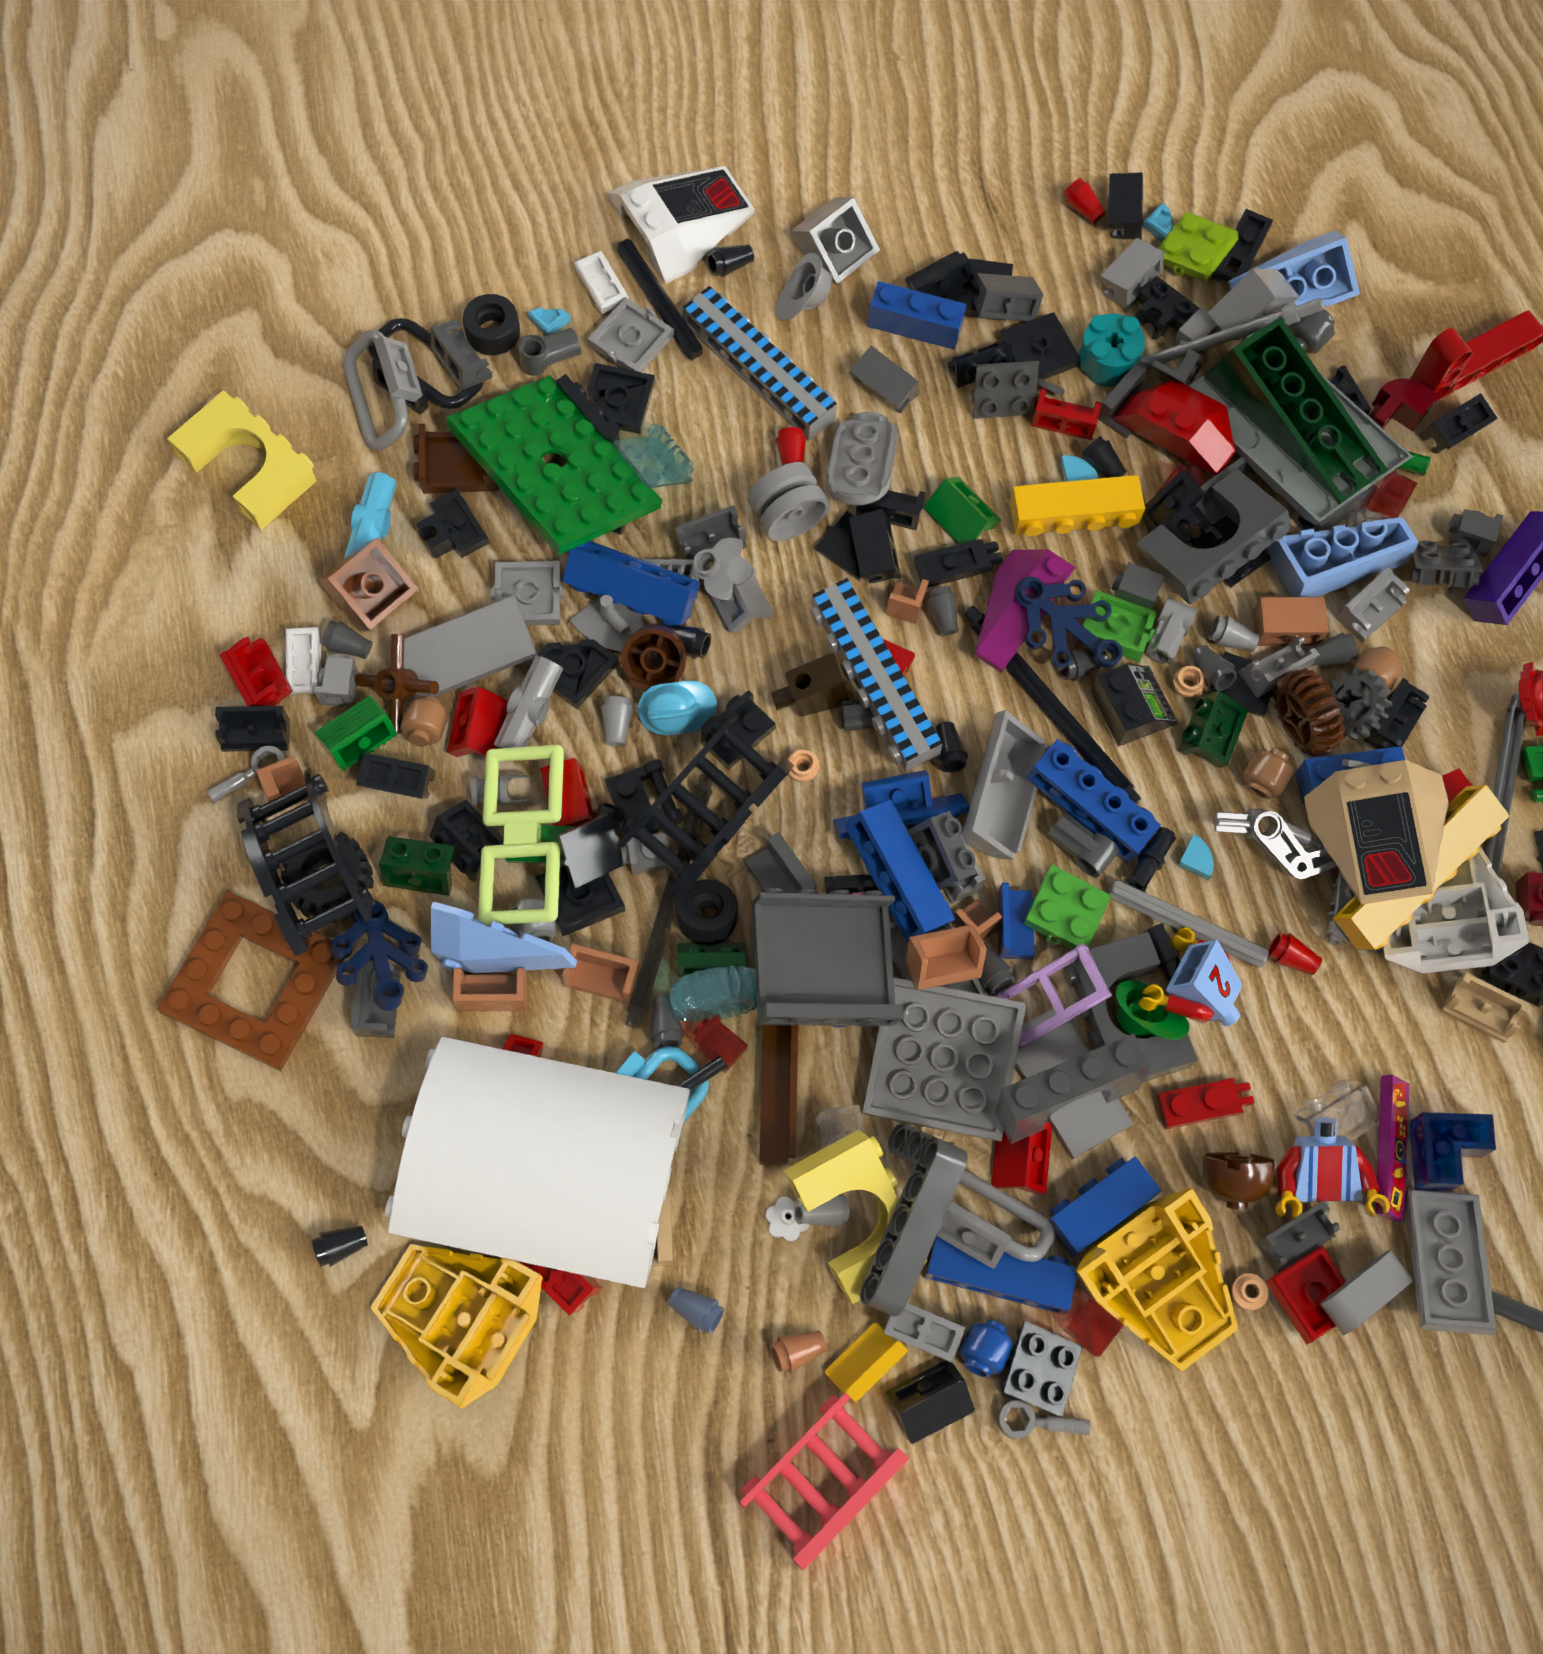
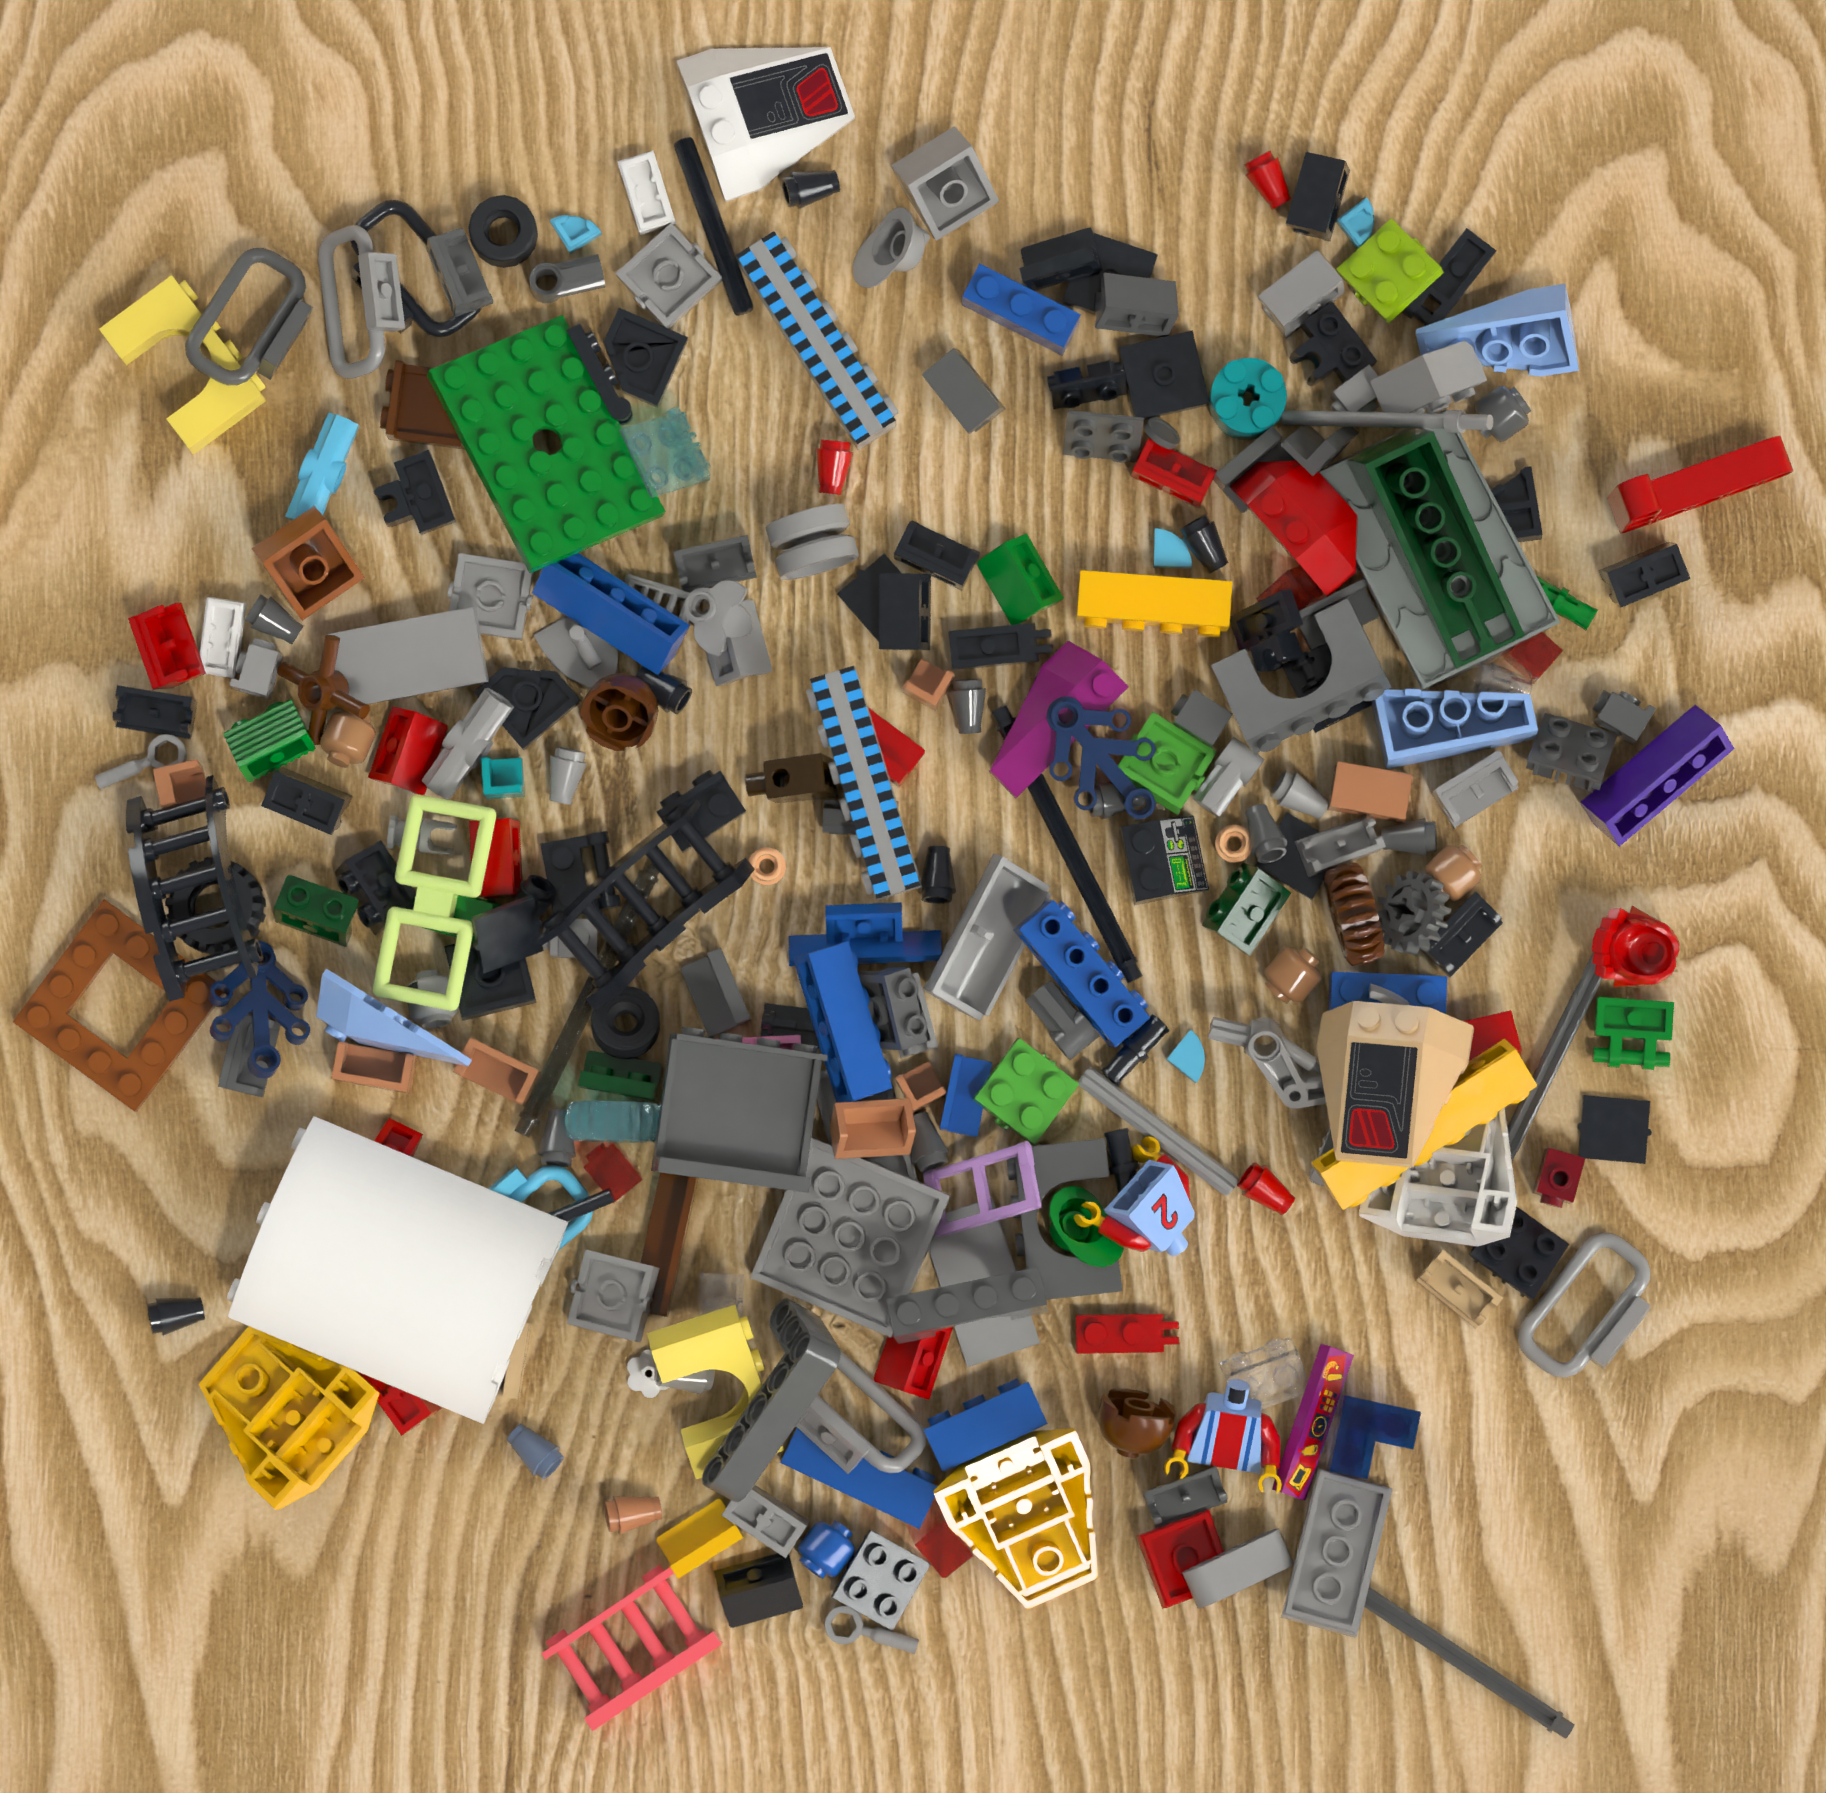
camera: 15 degrees right, 15 degrees up
(315, 429) = (277, 335): none -> dark grey bar
(564, 732) = (502, 778): none -> teal panel
(677, 707) = (637, 772): medium azure piece -> none
(742, 1151) = (612, 1295): none -> light grey plate
(862, 459) = (912, 495): light grey tile -> none
(1240, 1297) = (1106, 1543): light nougat plate -> none
(1403, 401) = (1585, 526): dark red brick -> none

